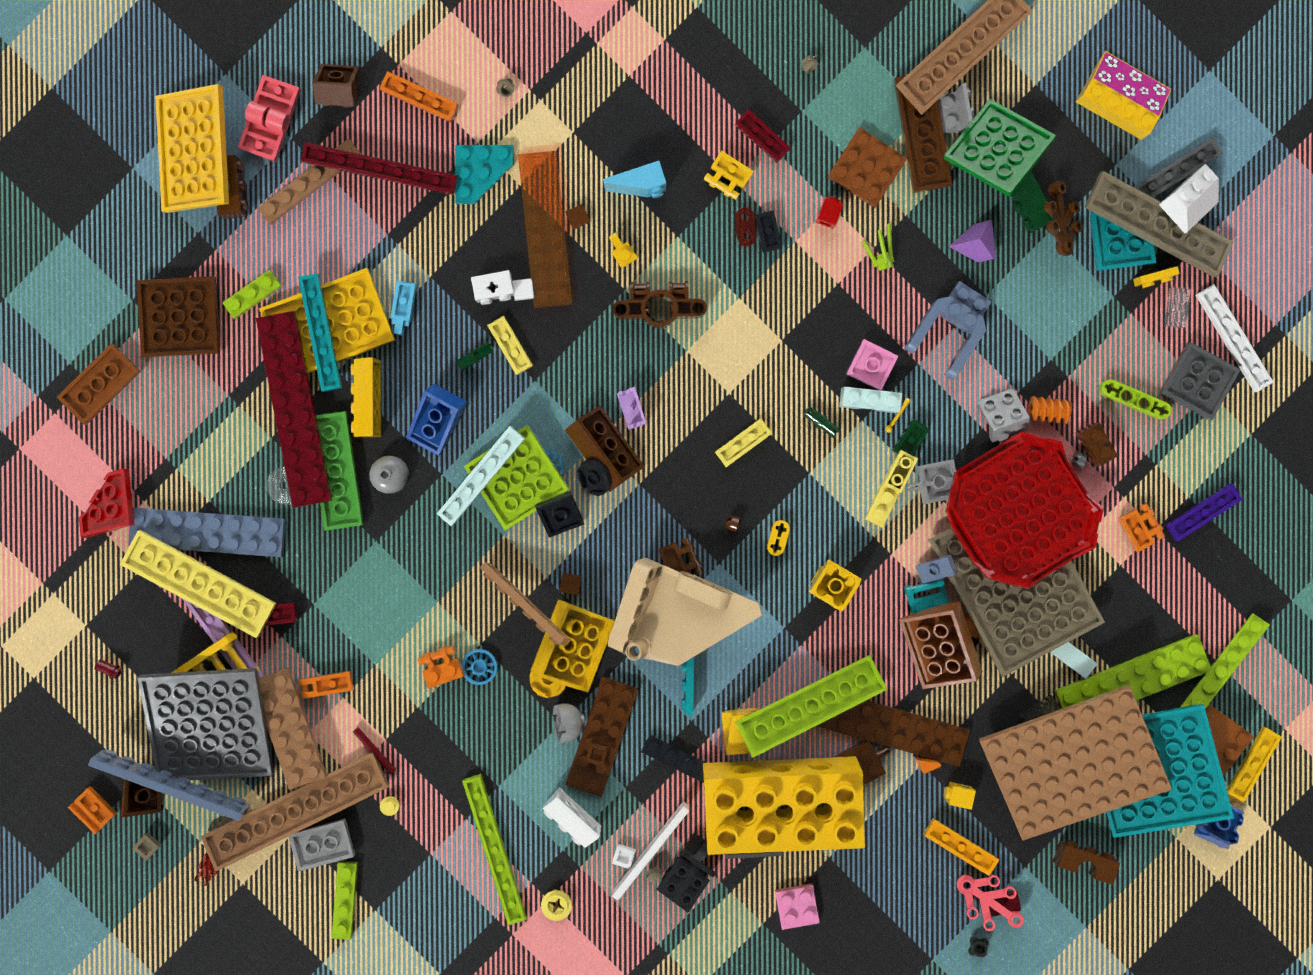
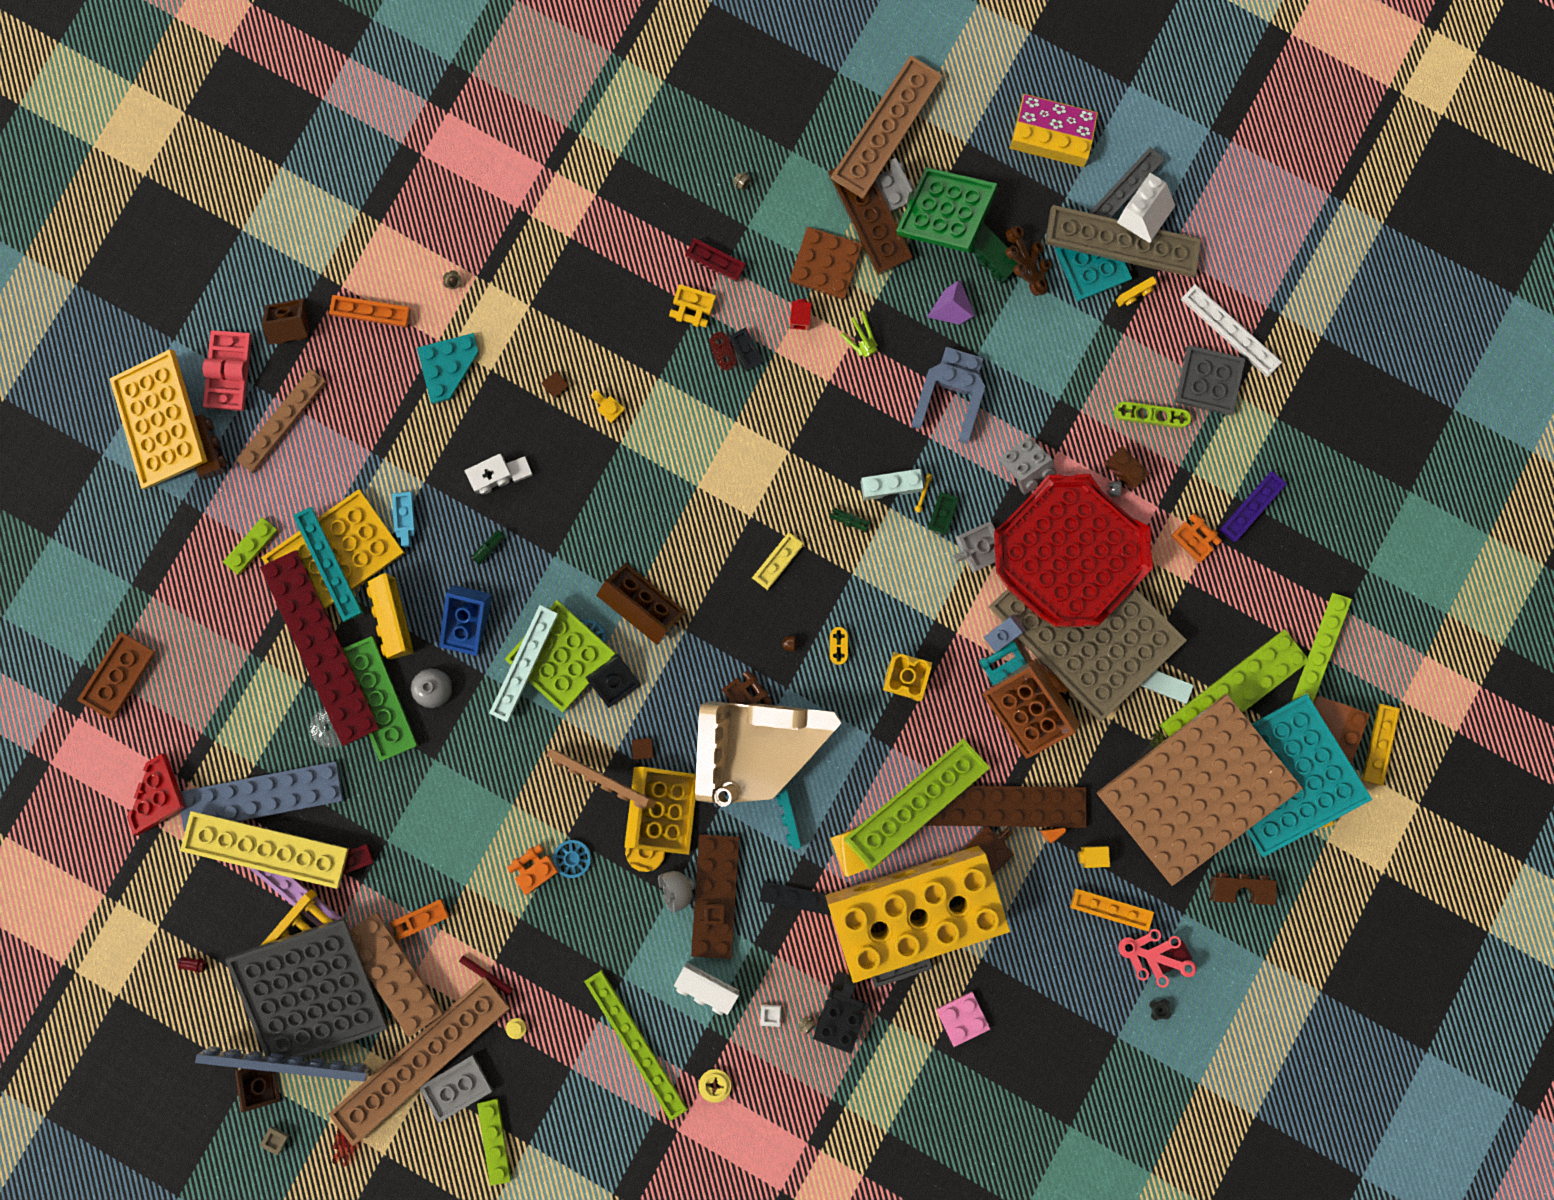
camera: 15 degrees left, 5 degrees down
(92, 810) = (209, 1117): orange plate -> none
(178, 317) = (182, 587): reddish brown plate -> none
(379, 168) = (347, 389): dark red tile -> none
(510, 345) = (520, 527): light yellow tile -> none
(545, 229) = (526, 405): clear orange plate -> none
(594, 477) = (638, 634): black tile -> none
(631, 408) = (657, 556): lavender hinge -> none
(641, 181) = (606, 334): medium azure slope -> none
(650, 851) = (796, 1001): white tile -> none
(677, 294) = (636, 443): reddish brown piece -> none
(872, 365) = (883, 450): bright pink plate -> none
(890, 488) = (936, 566): light yellow slope -> none
(1050, 409) = (1070, 446): orange piece -> none
(1177, 307) = (1166, 316): clear plate -> none
(1222, 832) = (1368, 819): blue slope -> none

